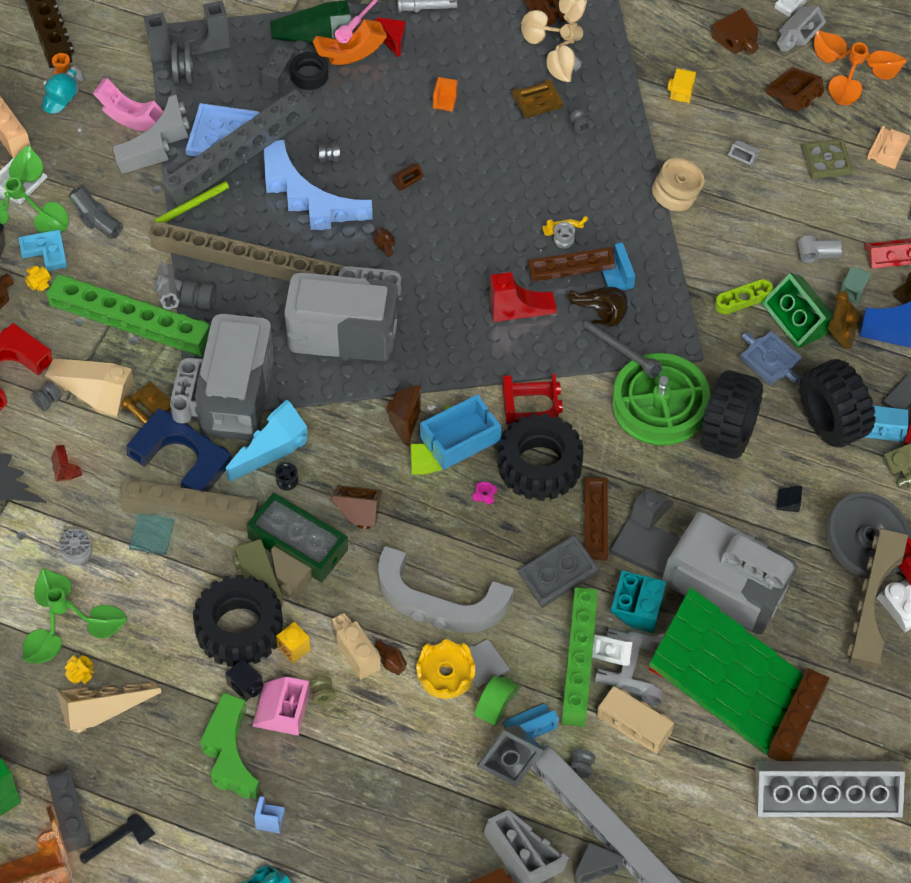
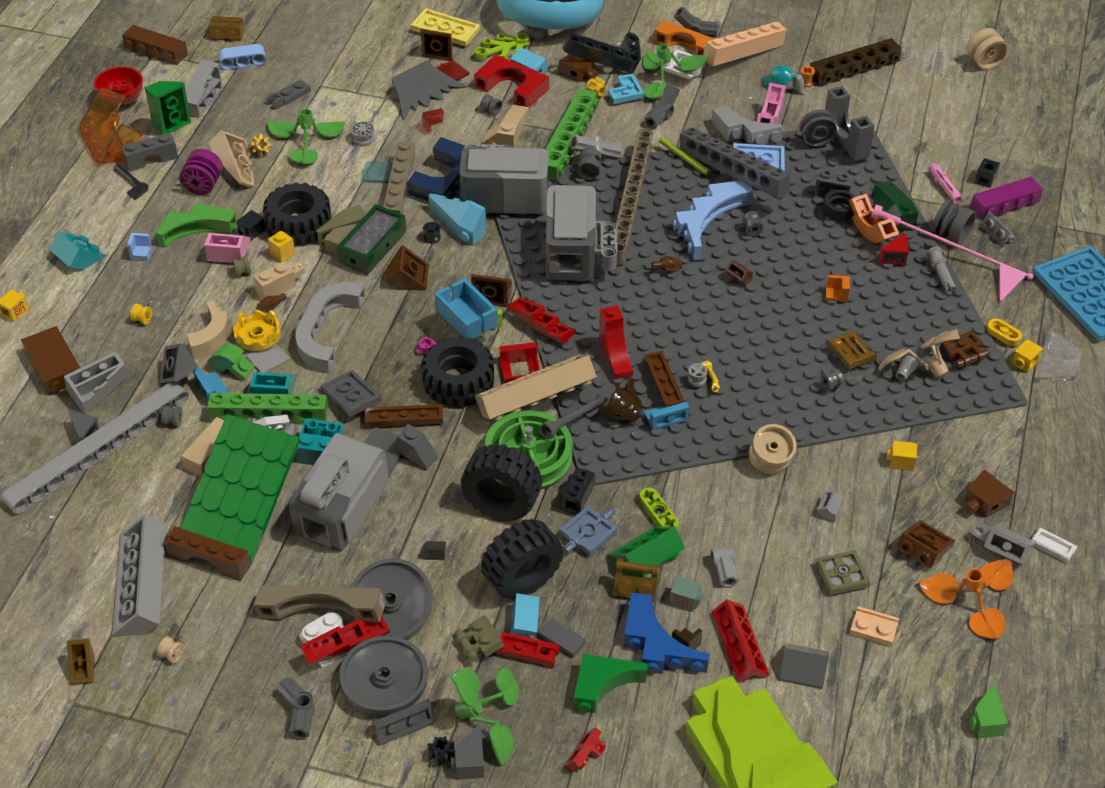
camera: 85 degrees right, 10 degrees down
(136, 736) = (201, 172): none -> magenta wheel
(398, 807) = (141, 314): none -> yellow wheel
(441, 717) = (210, 338): none -> tan arch
(463, 371) = (537, 318): none -> red slope
(540, 650) = (272, 383): none -> teal slope
(581, 378) = (535, 386): none -> tan brick
(720, 357) = (578, 490): none -> black brick

